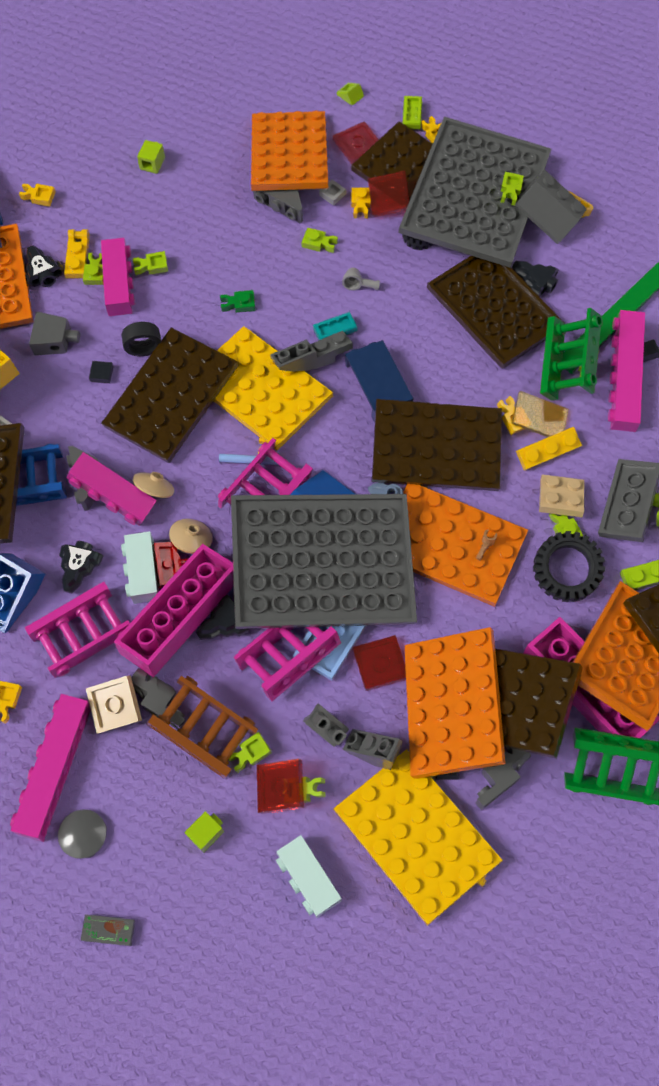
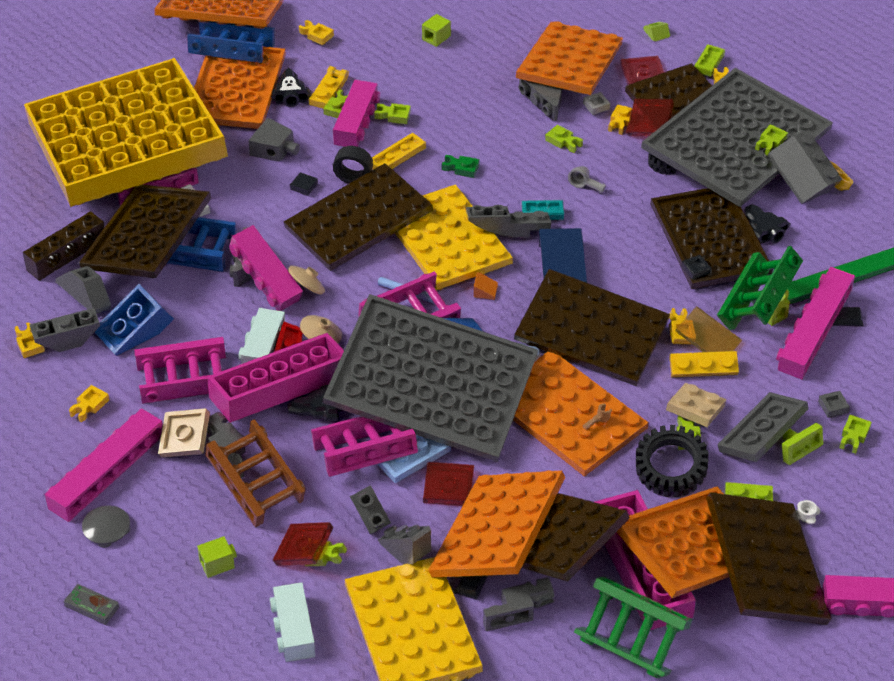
camera: 20 degrees right, 20 degrees down
(77, 563) = (207, 319): black rock -> none
(175, 307) = (399, 151): none -> yellow plate
(253, 751) = (292, 511): lime plate -> none
(319, 431) = (485, 287): none -> orange slope
(500, 346) = (696, 267): none -> black tile

